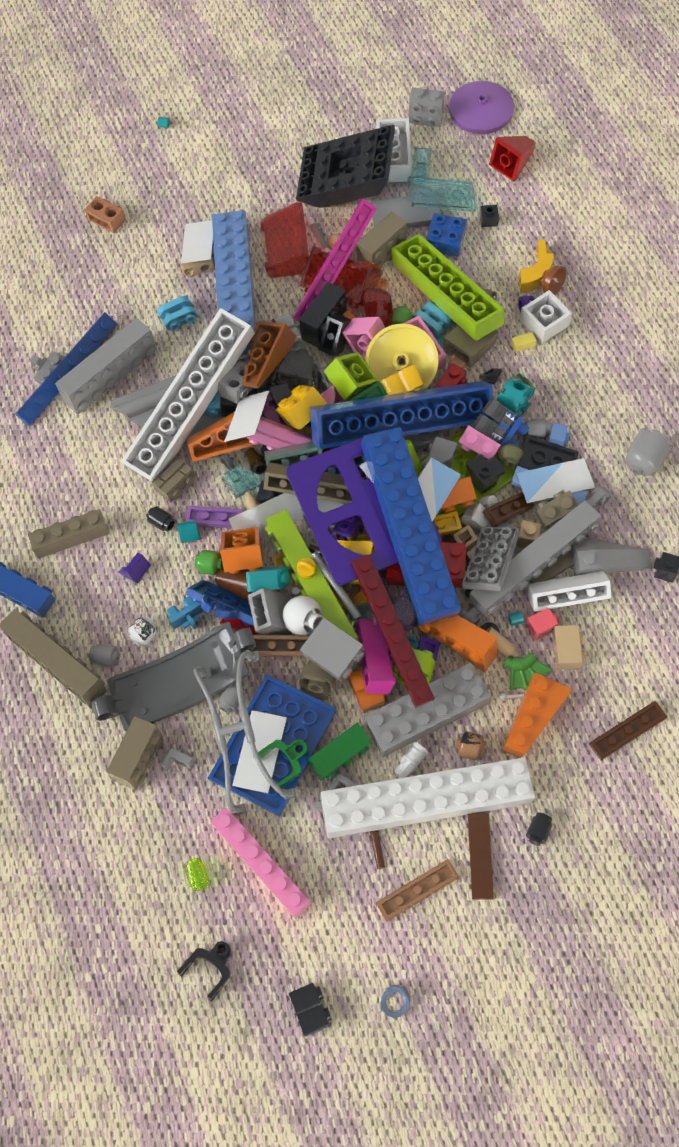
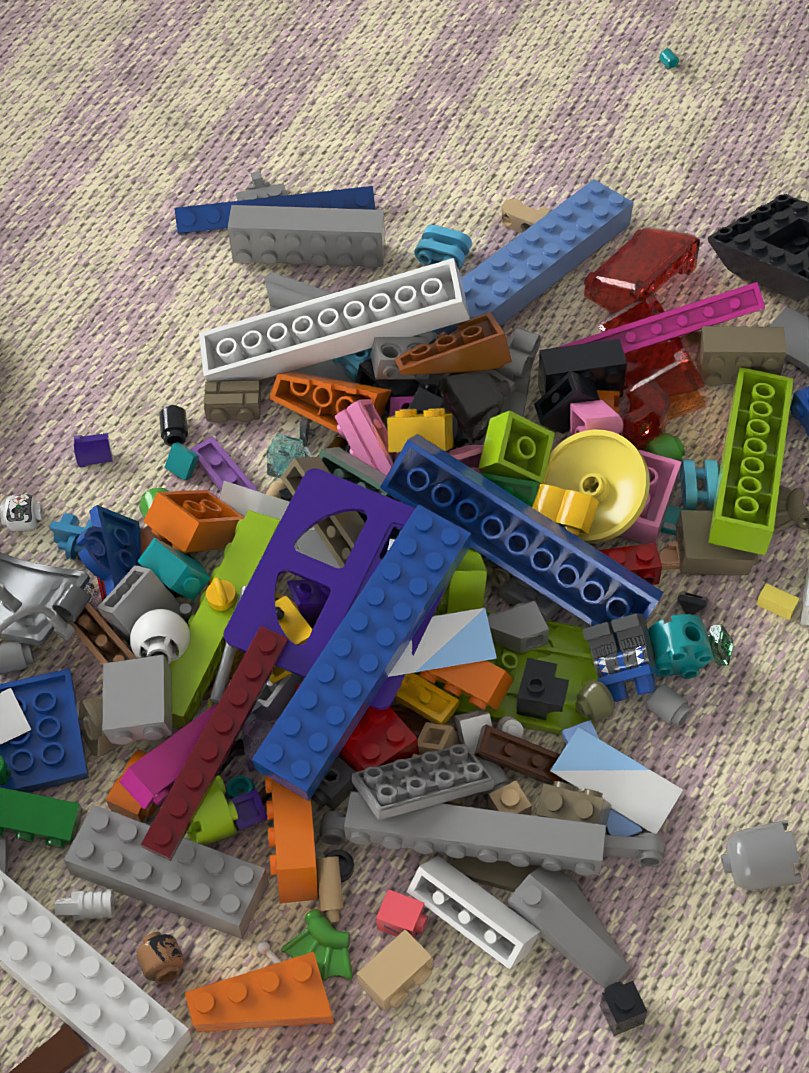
camera: 45 degrees right, 10 degrees down
(68, 533) = (77, 359): dark tan brick -> none
(105, 214) = (495, 98): nougat brick -> none
(197, 242) = (546, 196): white sticker -> none
(247, 416) = (357, 393): white sticker -> none
(318, 234) = (693, 287): light grey bar -> none
(478, 443) = (572, 654): bright pink brick -> none
(516, 618) = (382, 881): teal piece -> none
(541, 453) = (640, 737): black tile -> none
(559, 434) = (683, 737): medium blue plate -> none

